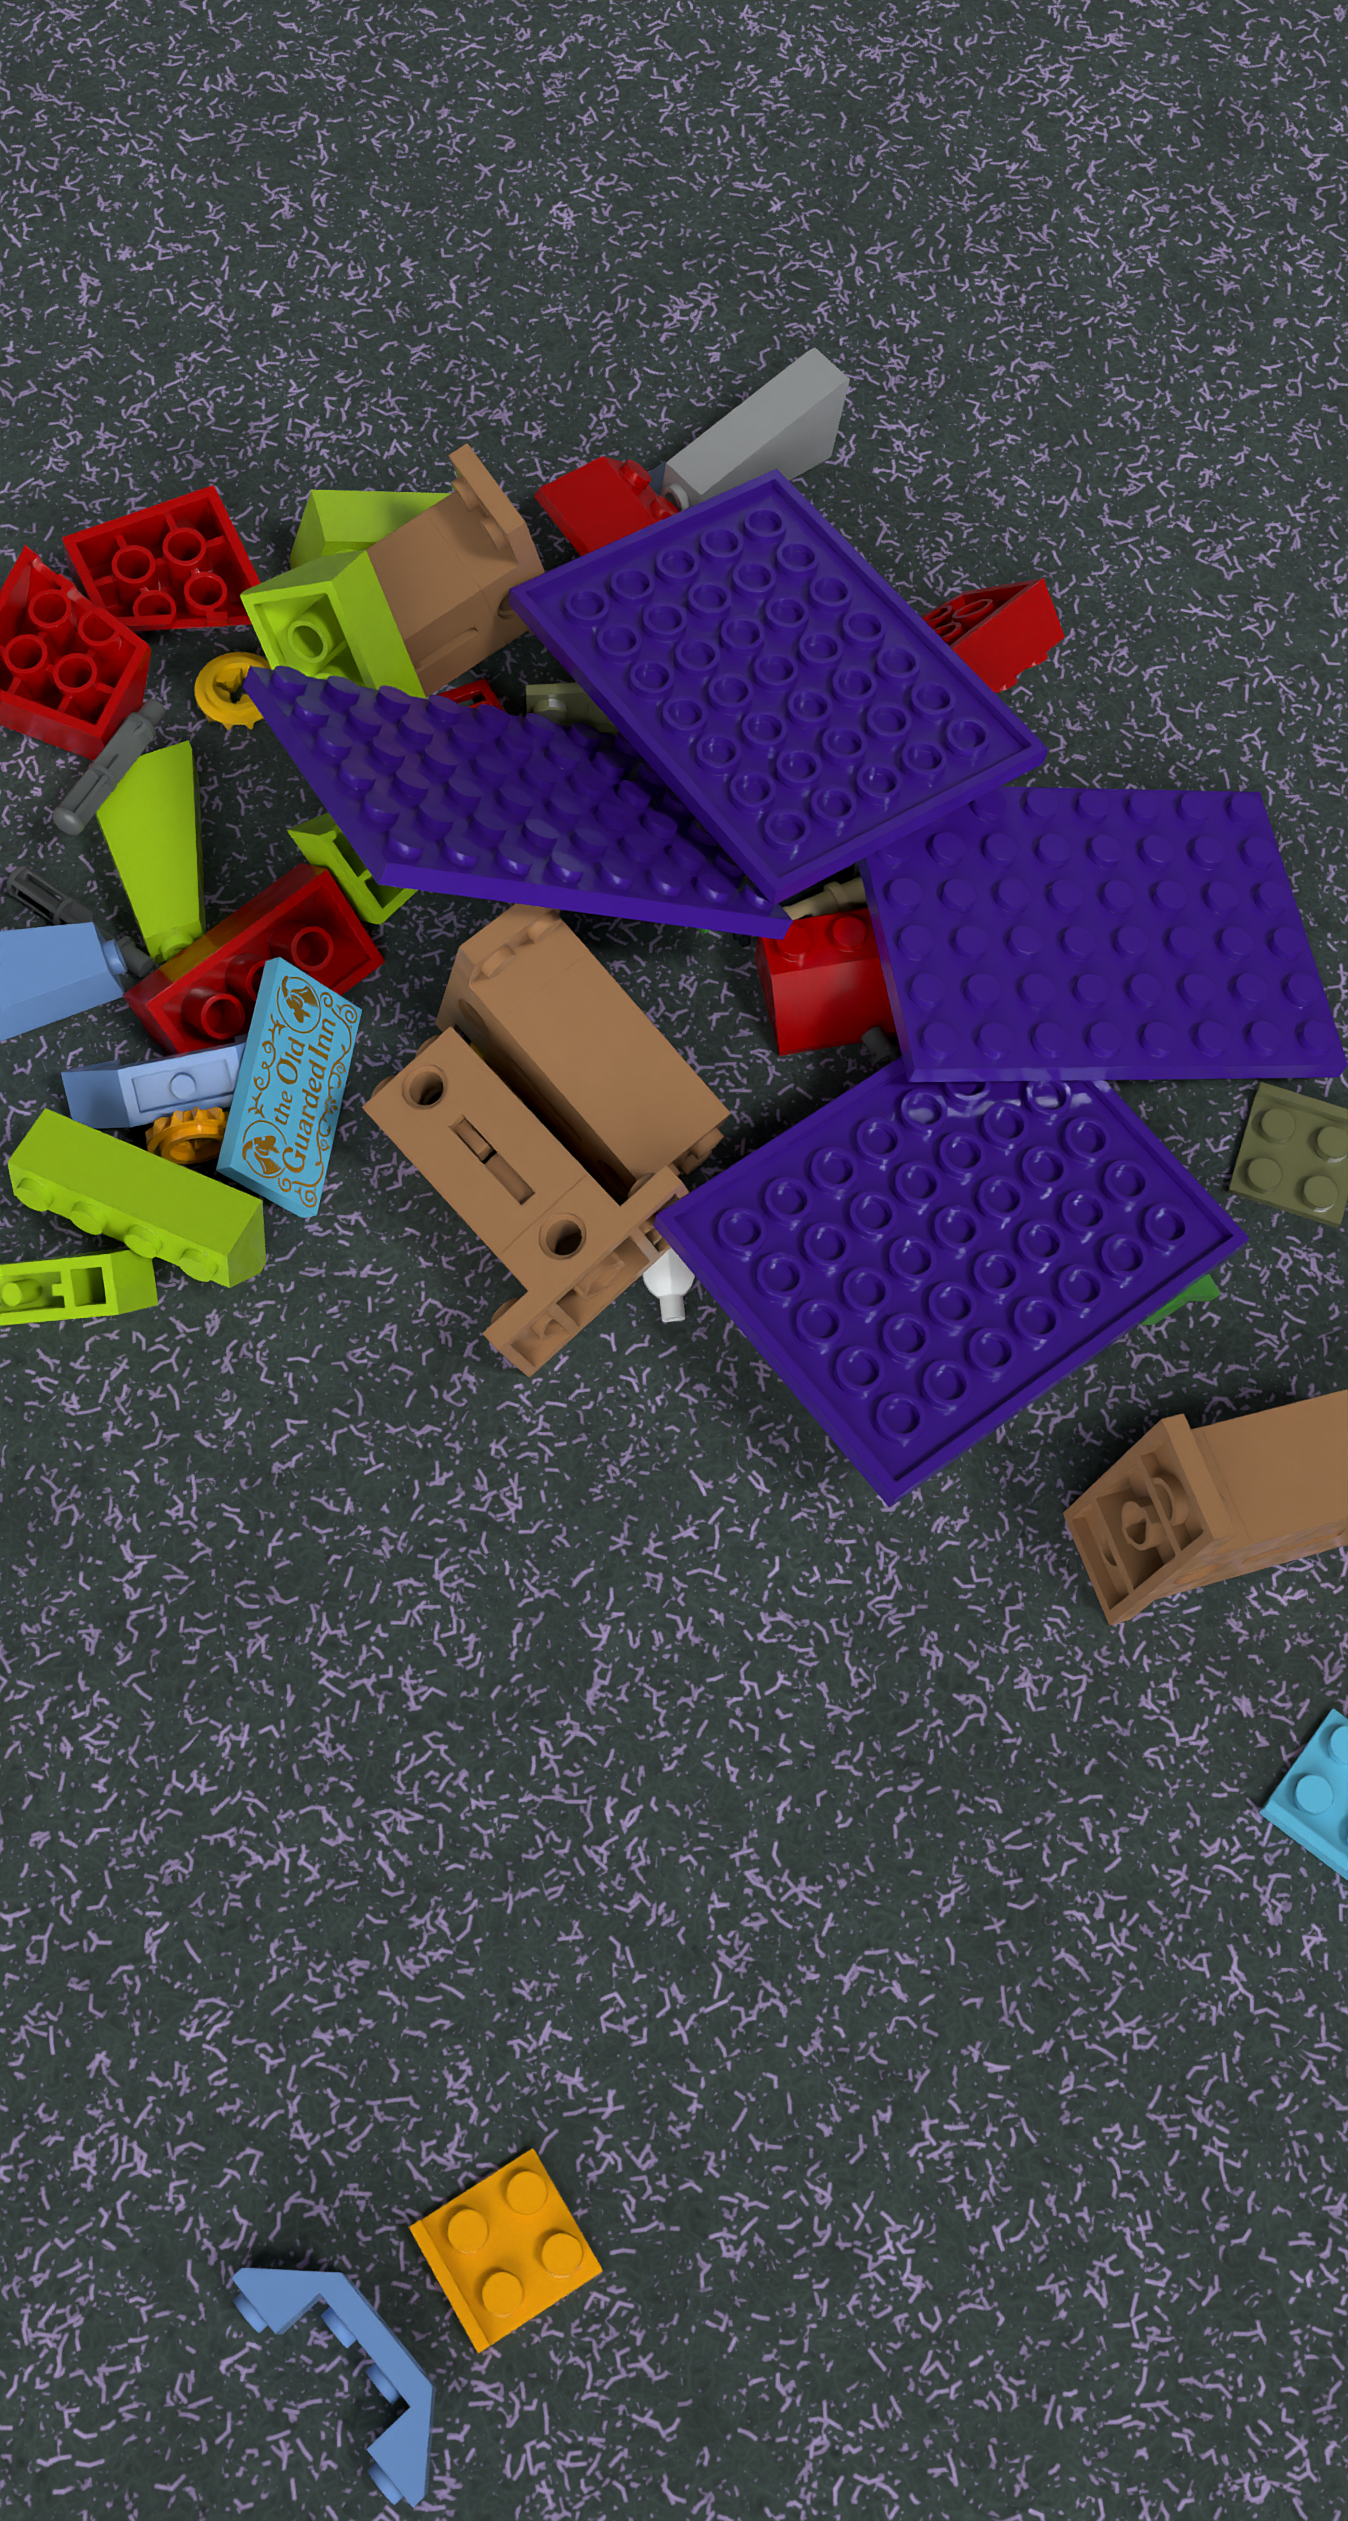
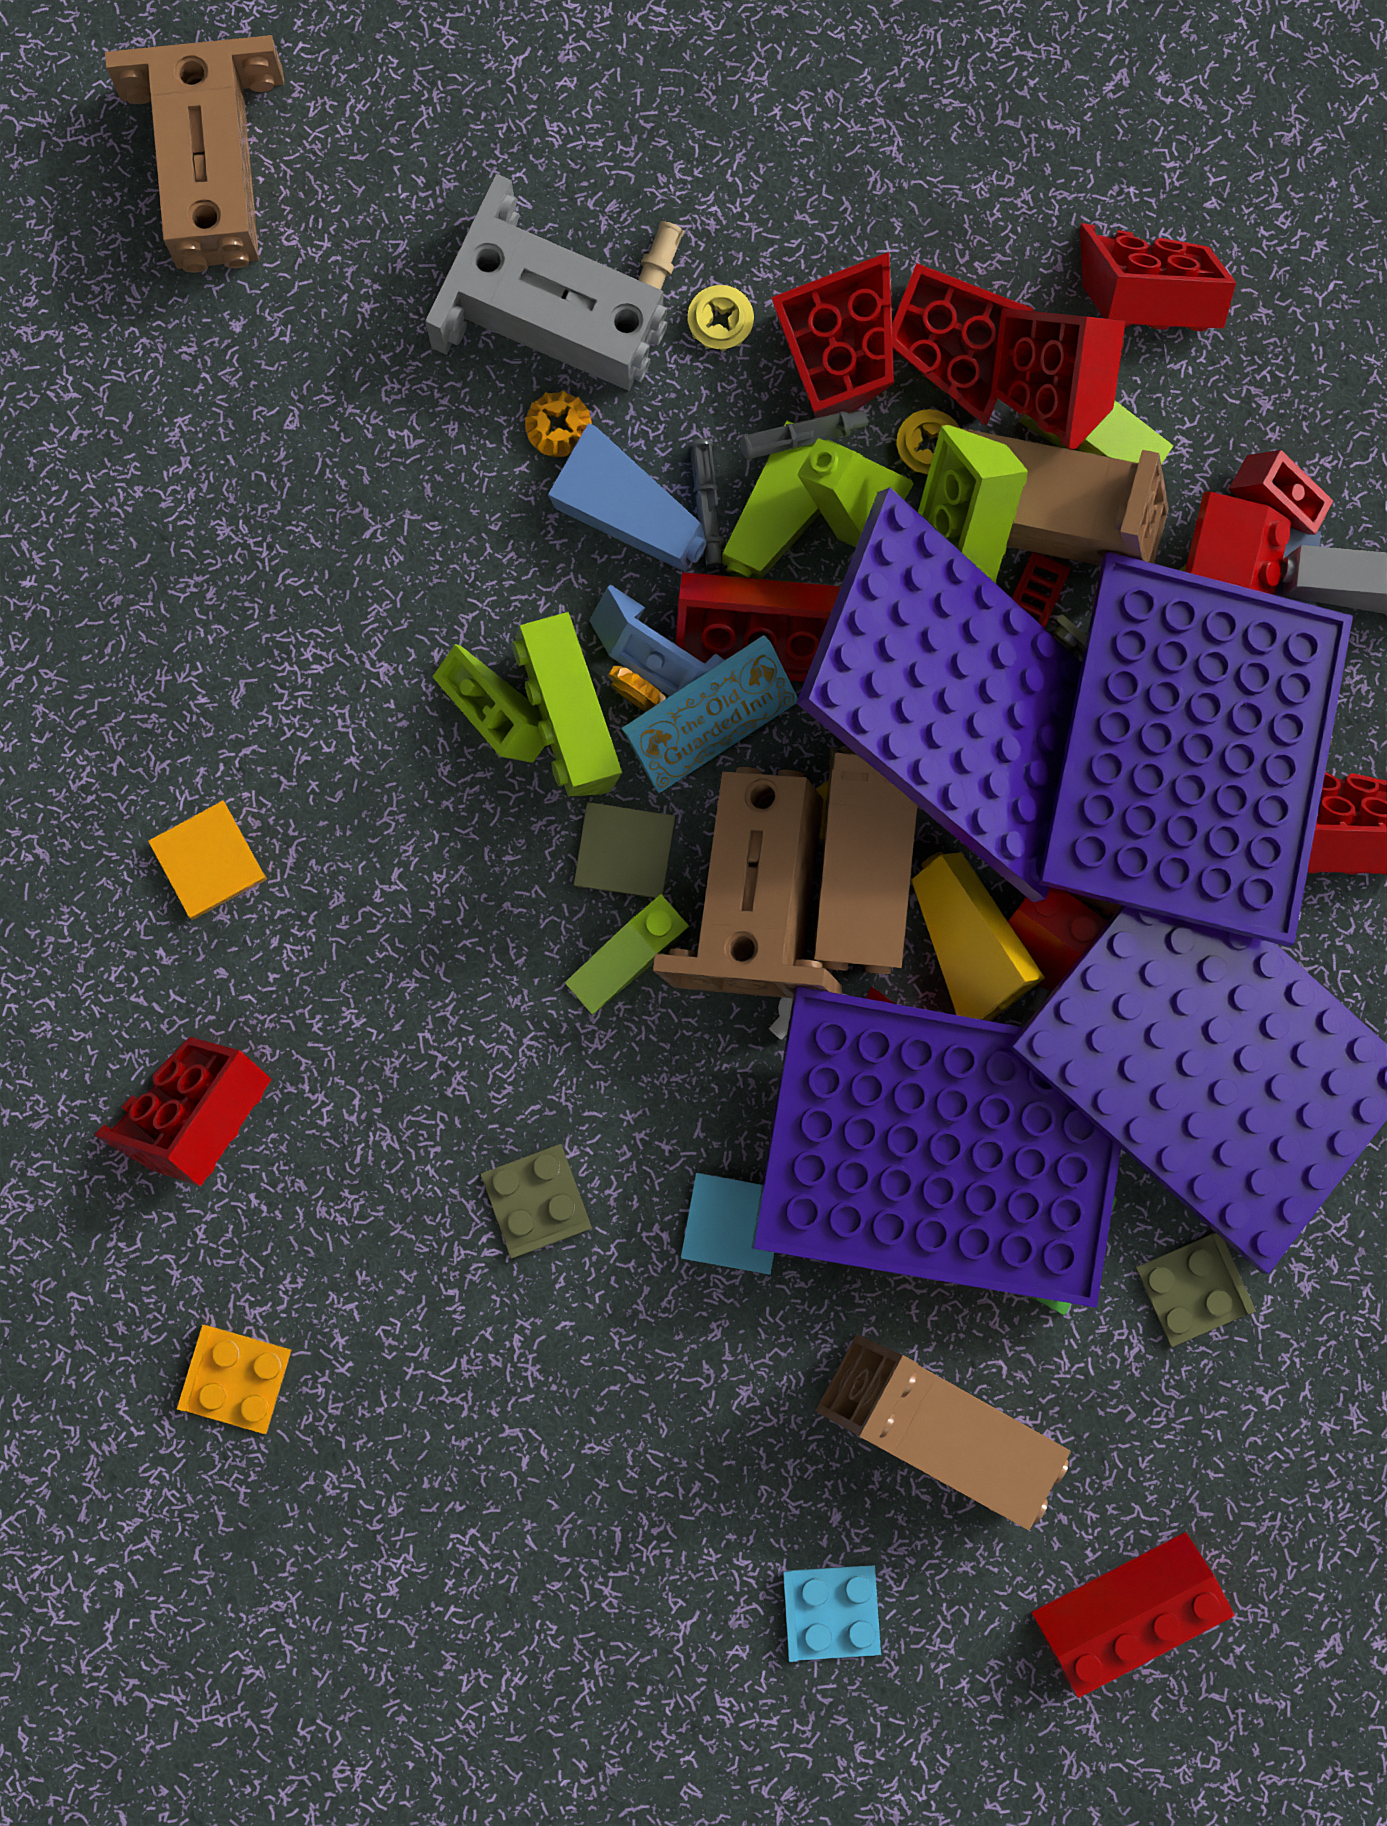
camera: 50 degrees right, 15 degrees up
(154, 2013) = (190, 1111): none -> red wedge
(213, 763) = (846, 487): none -> lime slope
(284, 2296) = (120, 1293): medium blue slope -> none
(289, 484) = (1058, 370): none -> red wedge
(298, 394) = (1155, 283): none -> red wedge
(340, 1298) = (624, 850): none -> olive piece
(450, 1384) = (627, 954): none -> lime slope
(583, 437) = (1279, 483): none -> red slope
(620, 1717) = (536, 1201): none -> olive piece
(767, 1048) = (972, 939): none -> yellow slope
(833, 1533) = (724, 1225): none -> medium azure piece

